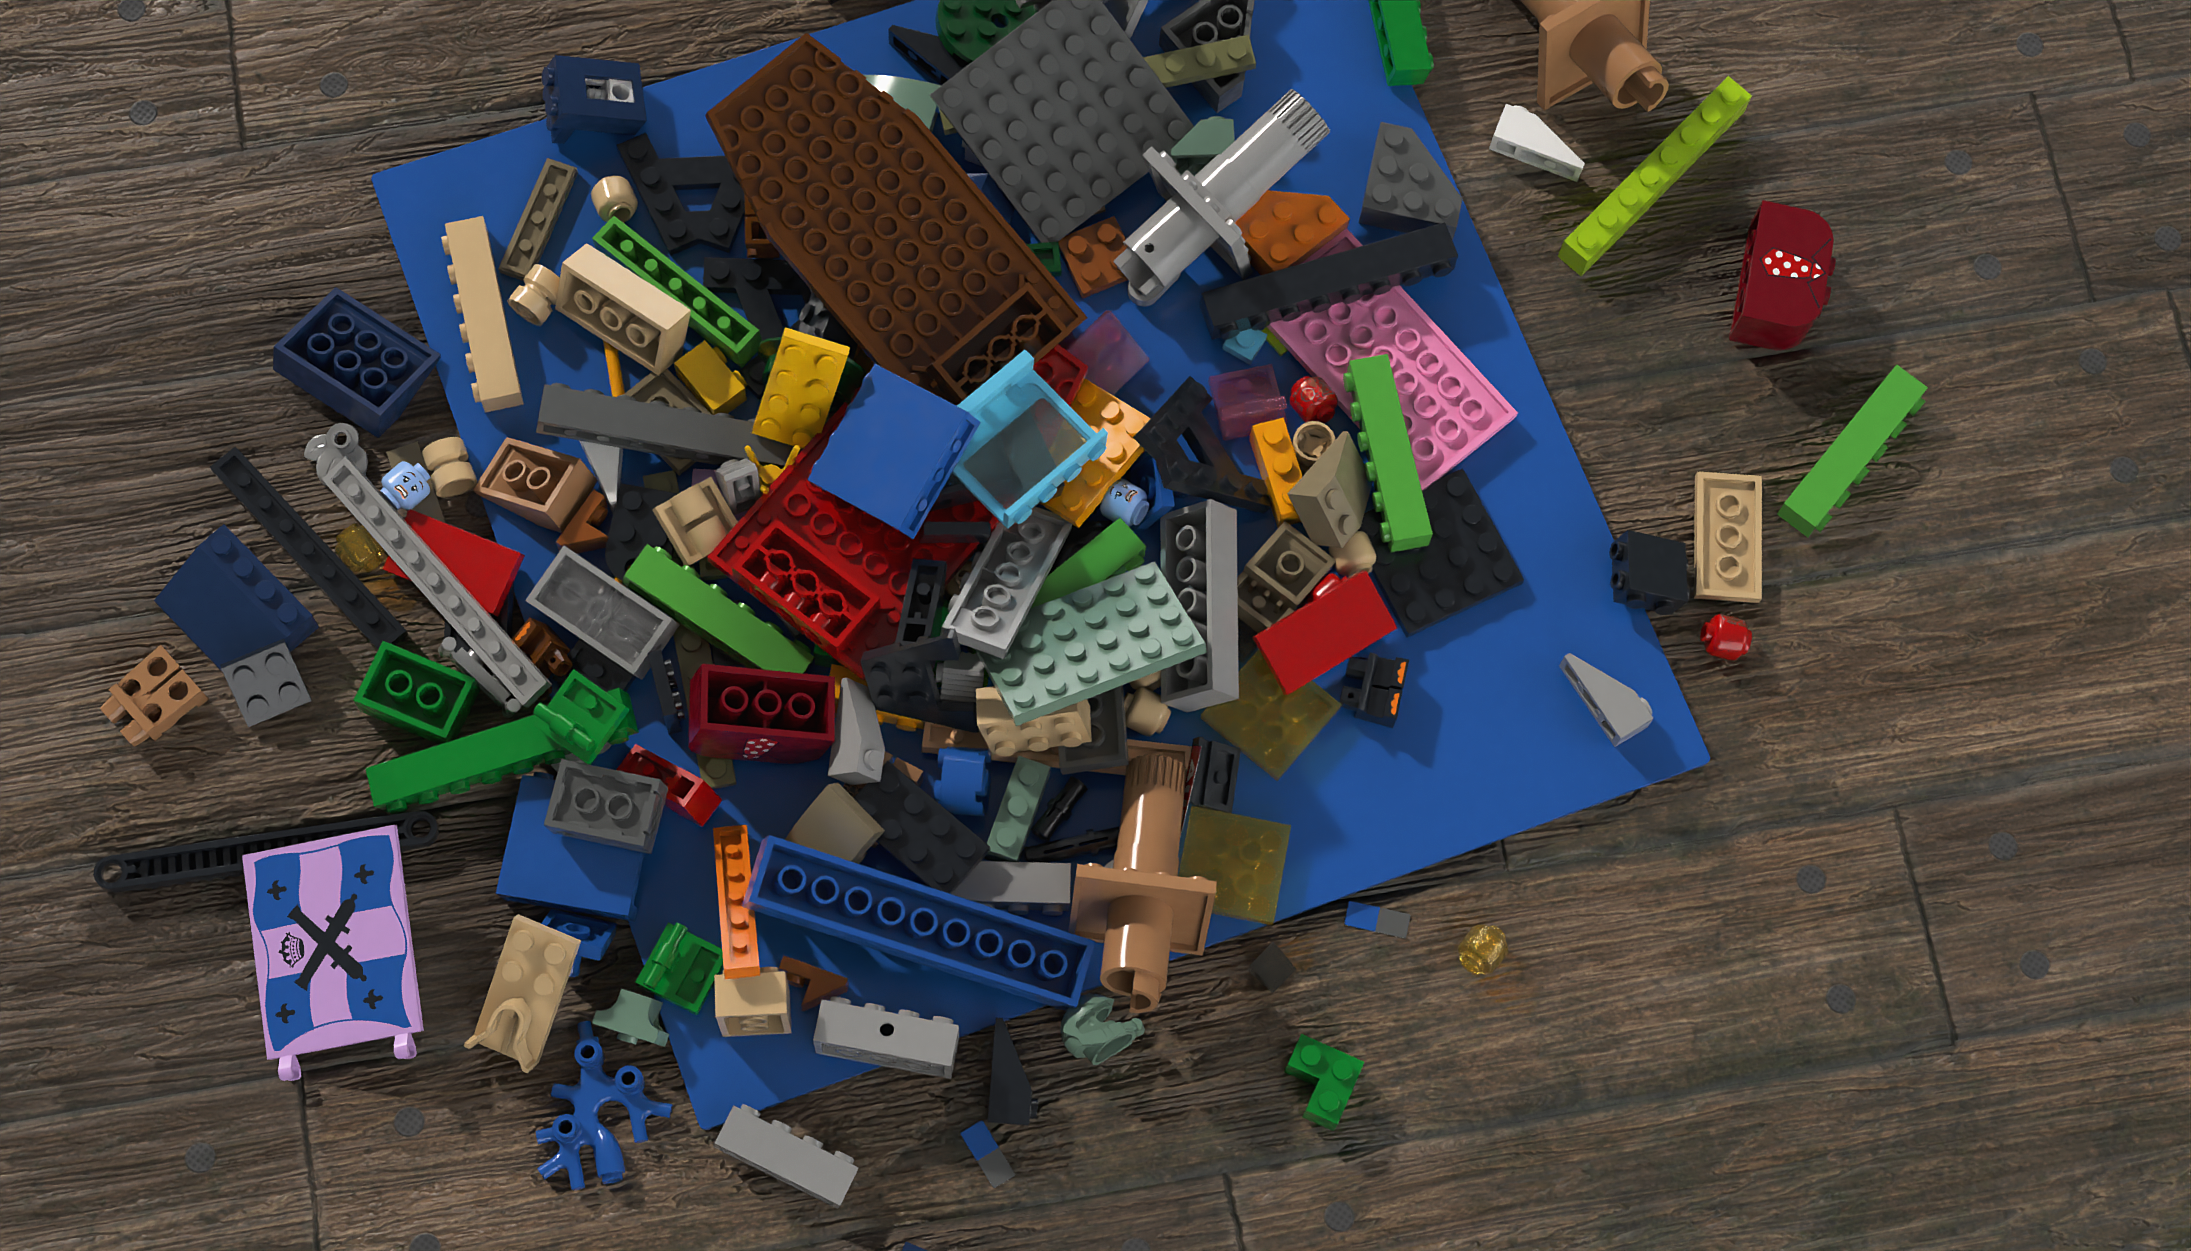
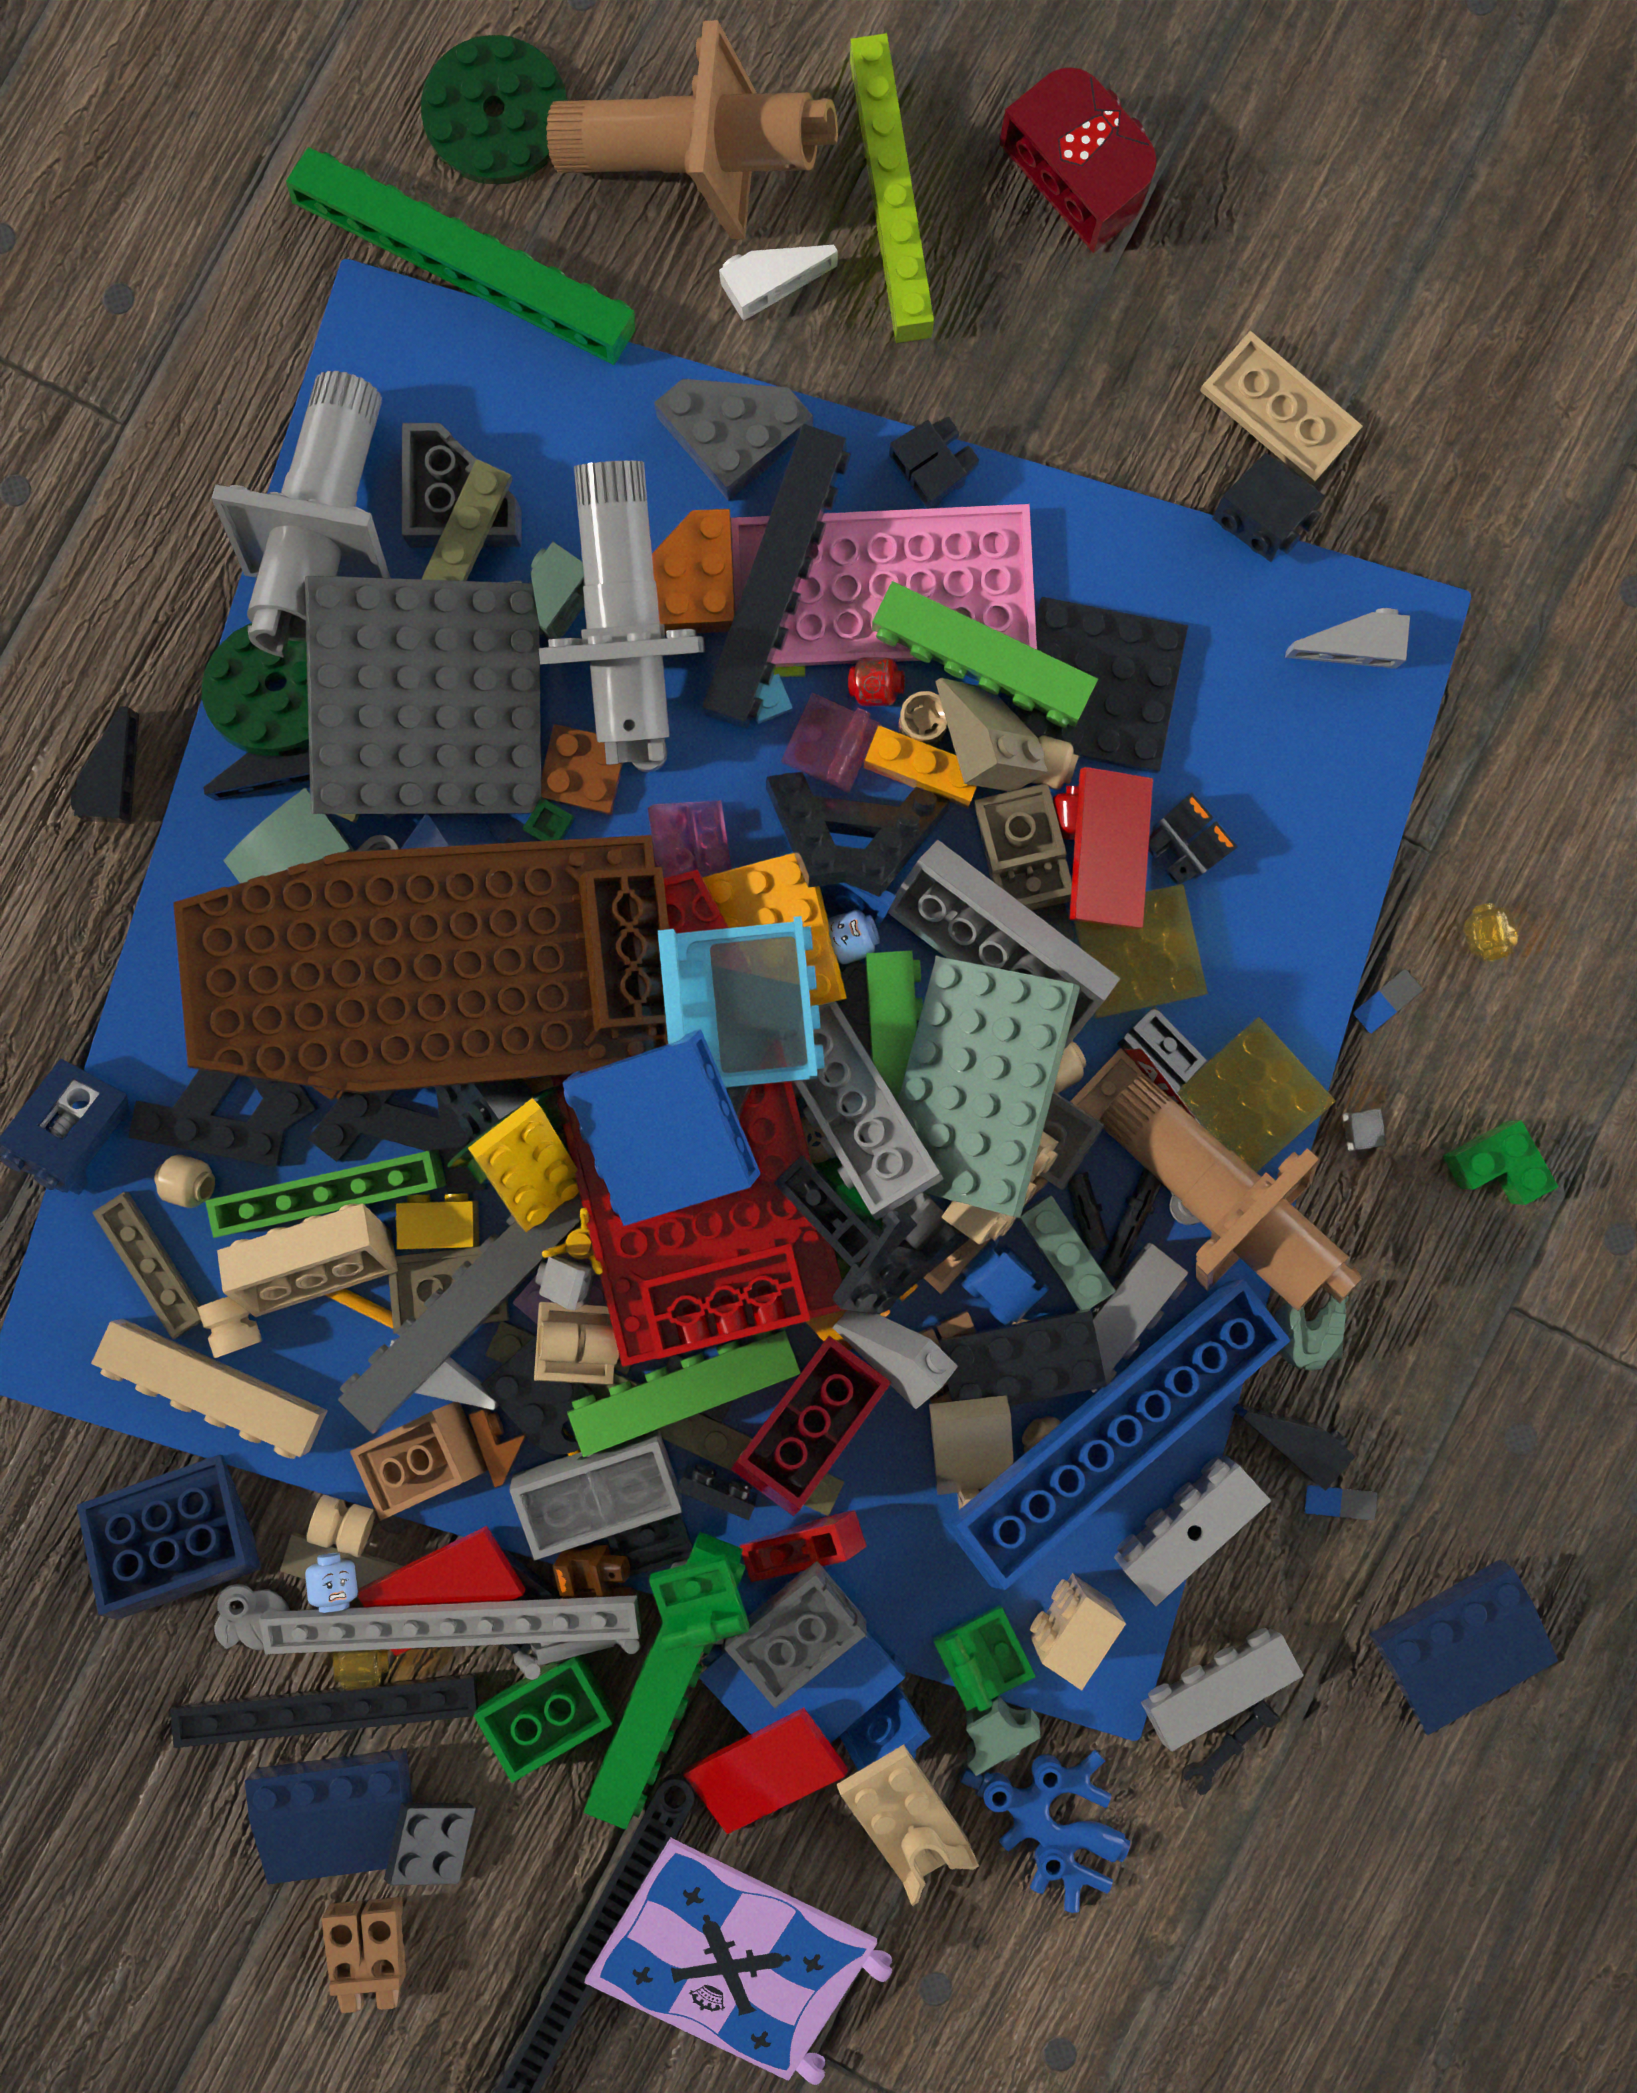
camera: 45 degrees left, 15 degrees up
(487, 870) = (766, 1771): none -> red tile
(736, 922) = (950, 1565): orange plate -> none
(750, 1202) = (1233, 1744): none -> black piece
(821, 982) = (1091, 1543): dark orange slope -> none
(955, 532) = (776, 1122): black tile -> none
(1490, 328) = (929, 463): none -> black hips
(1726, 637) = (1373, 486): red head -> none
(1852, 450) = (1288, 227): bright green brick -> none

